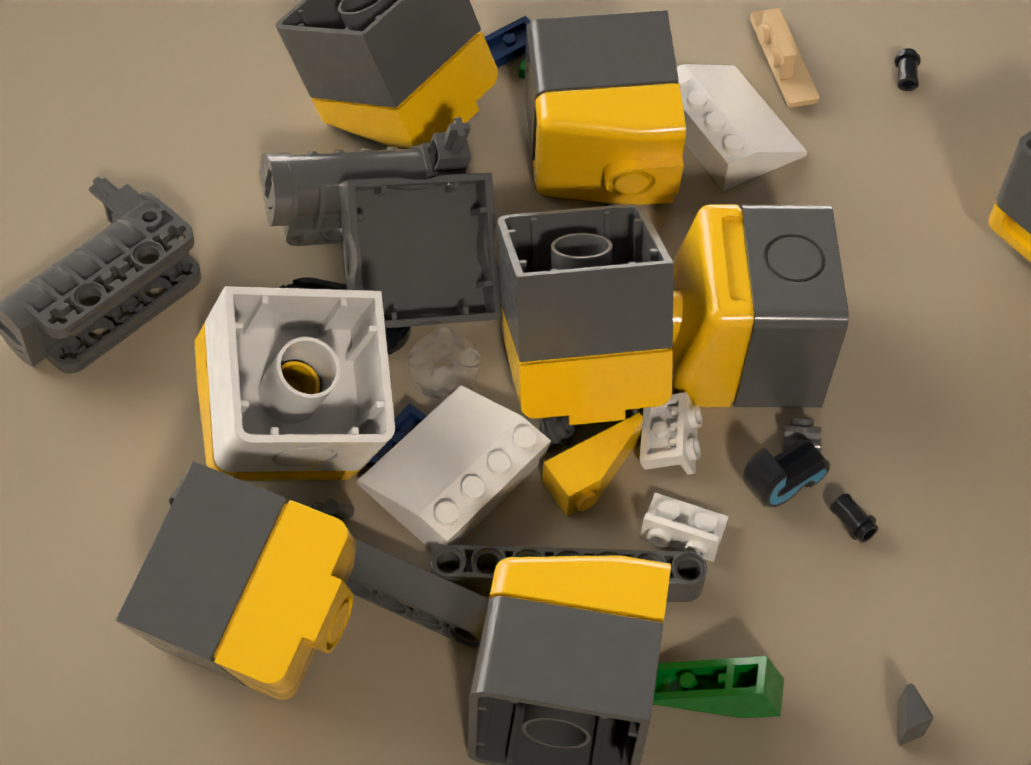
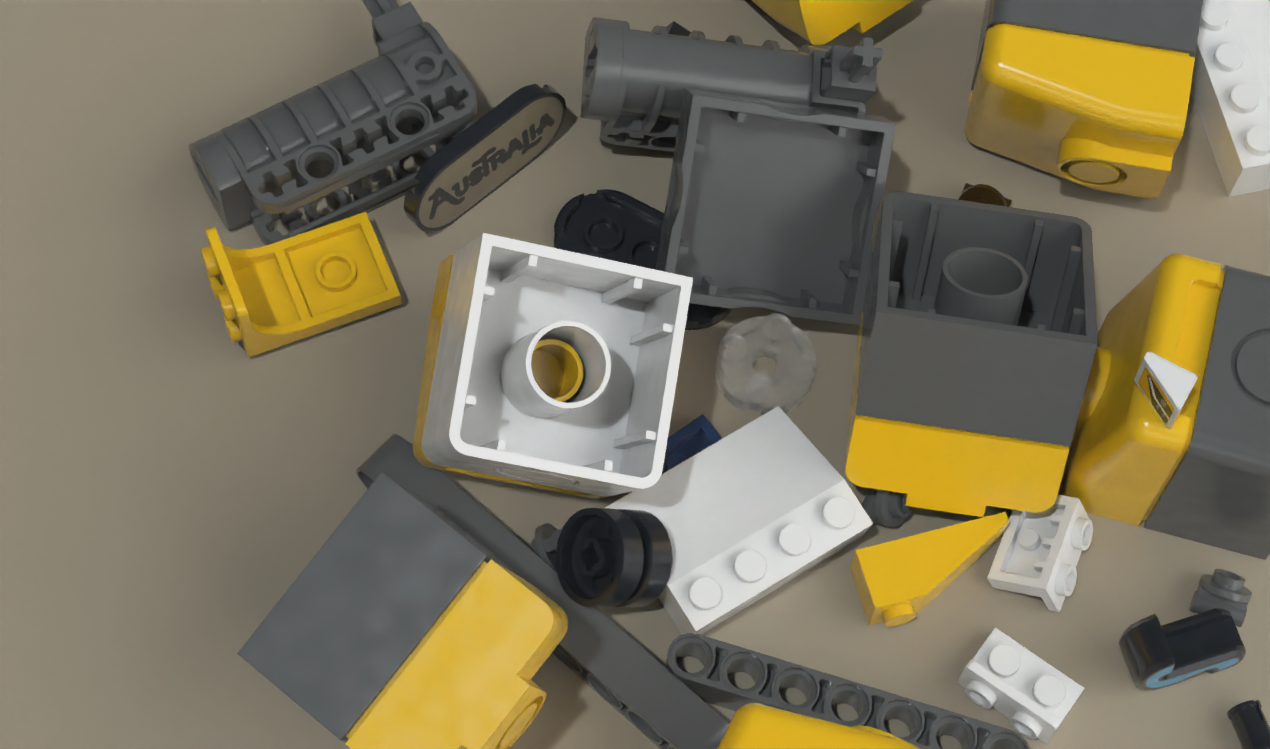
camera: 15 degrees right, 10 degrees up
(93, 387) = (300, 283): none -> yellow bracket
(205, 271) = (485, 156): none -> tile
(375, 505) = (613, 557): none -> black wheel
(726, 281) = (1164, 386): none -> white slope

